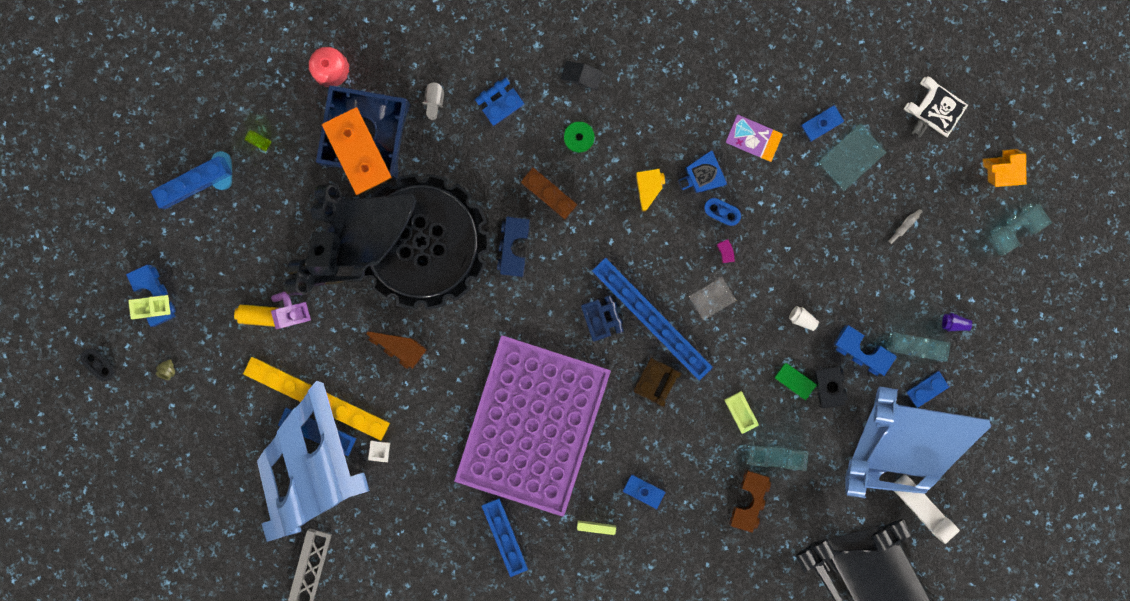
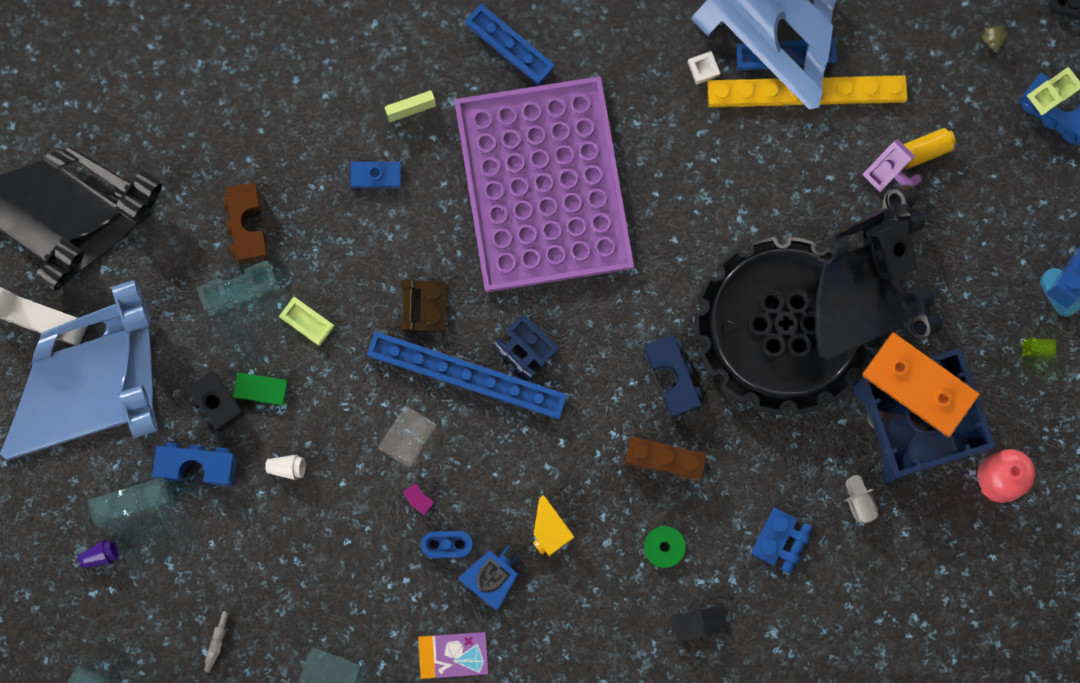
camera: 155 degrees right, 10 degrees down
(404, 348) = (740, 195): reddish brown slope -> none
(927, 389) = (97, 459): blue plate -> none

